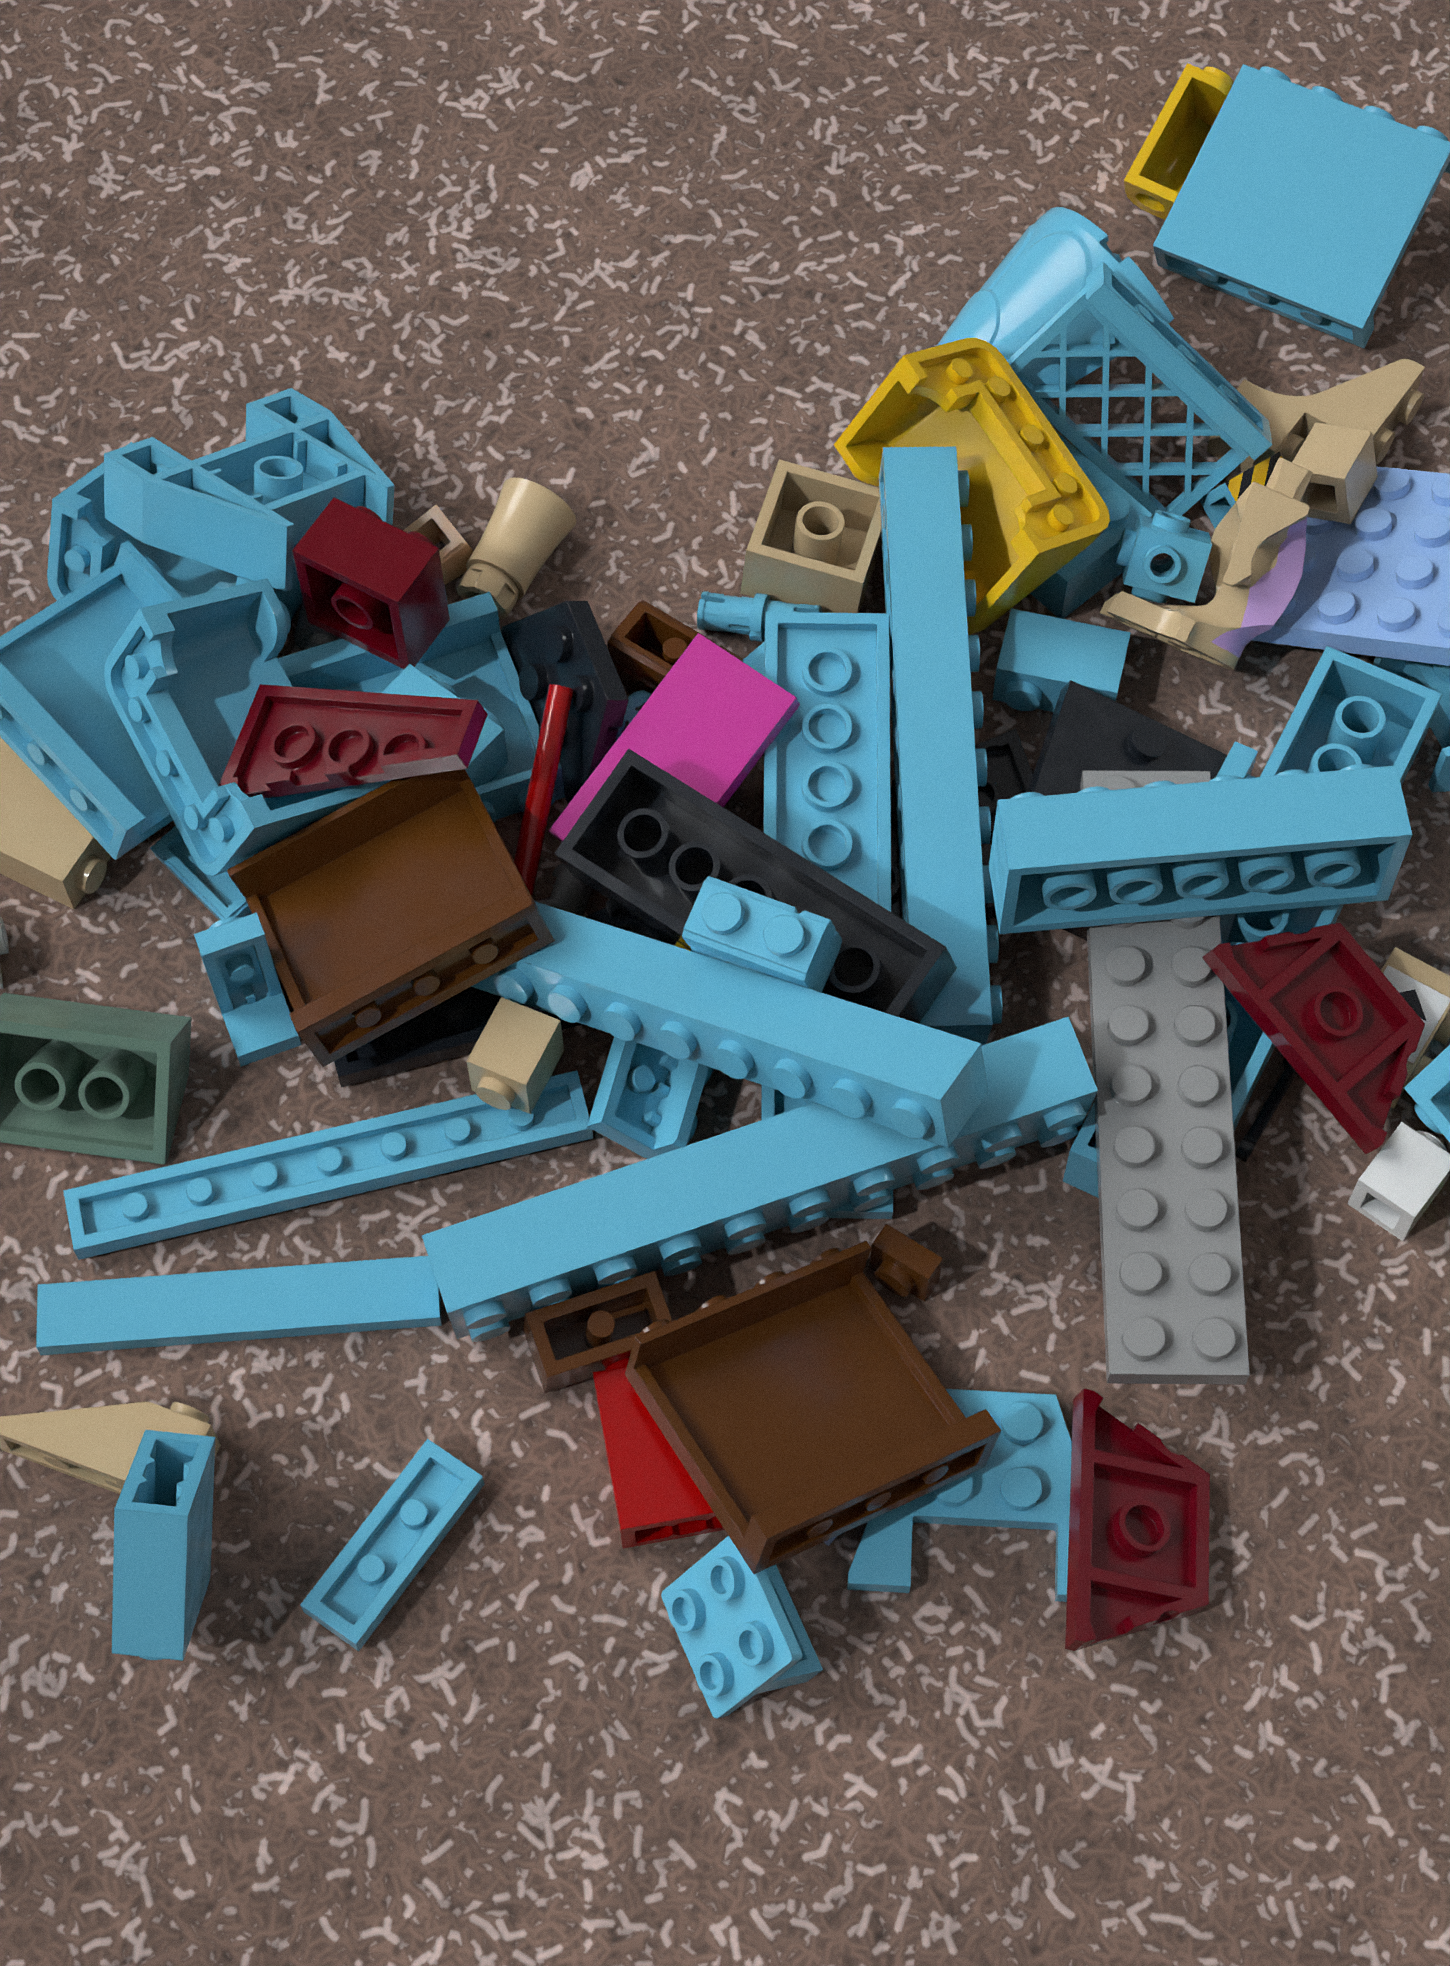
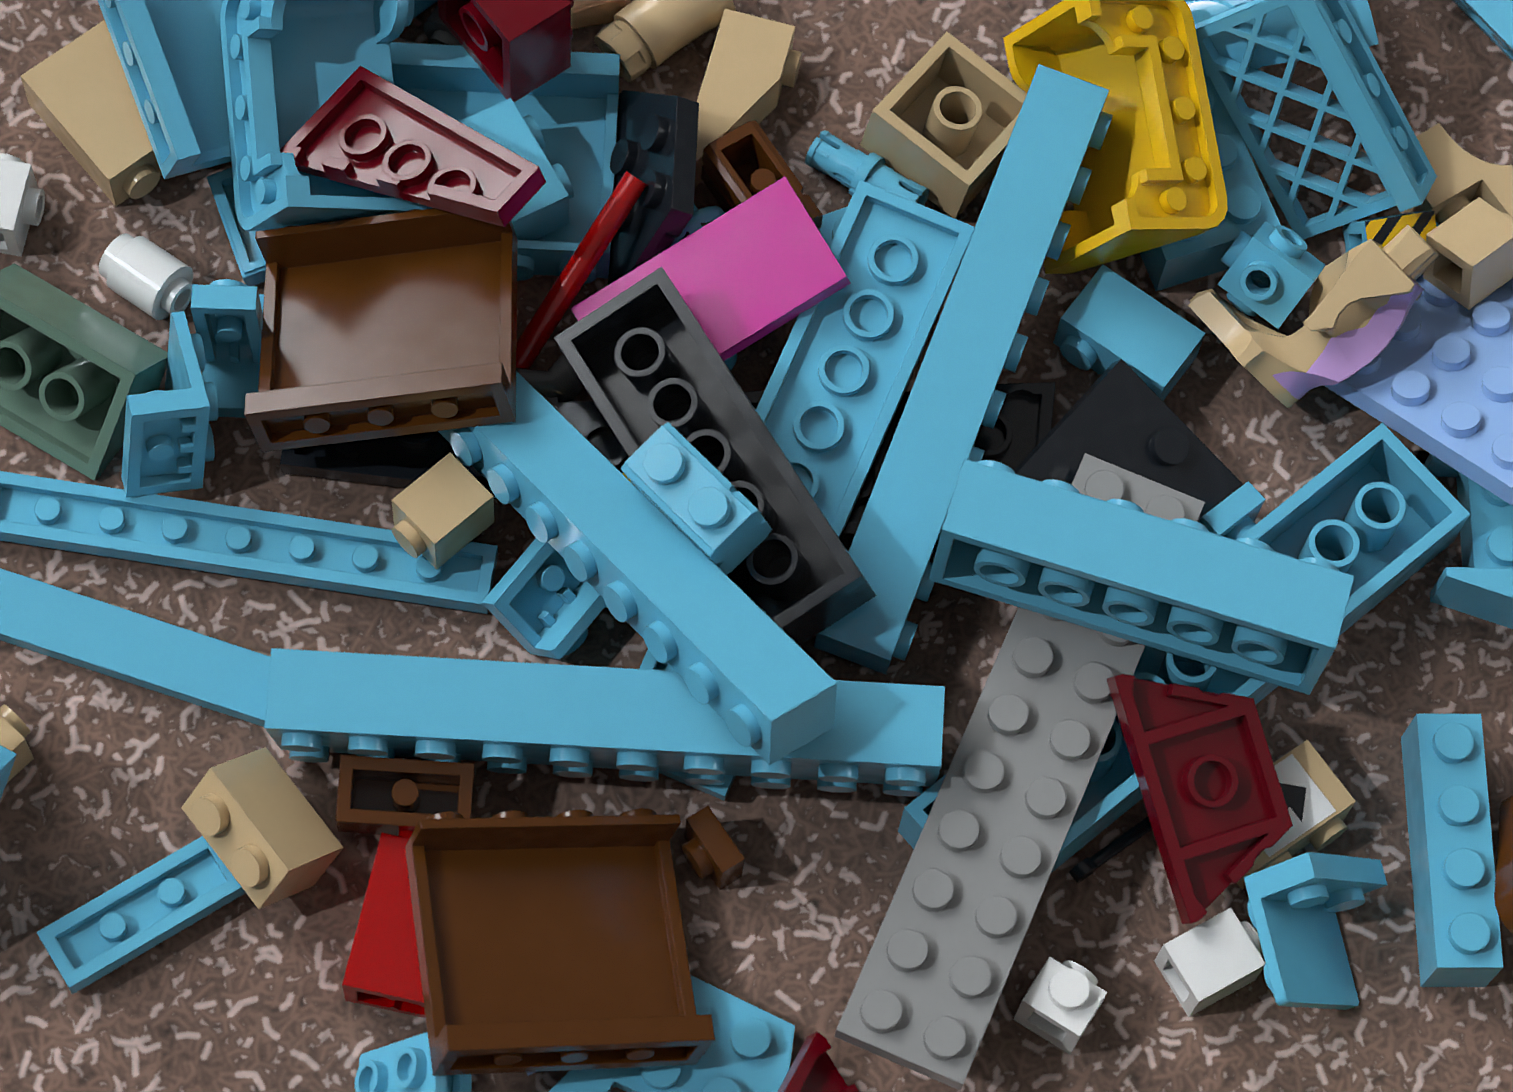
camera: 15 degrees right, 5 degrees up
(134, 957) = (146, 276): none -> white brick
(224, 1074) = (170, 428): none -> medium azure bracket
(474, 1416) = (262, 827): none -> tan brick
(610, 564) = (744, 75): none -> tan slope
(1290, 1262) = (1061, 1003): none -> white brick

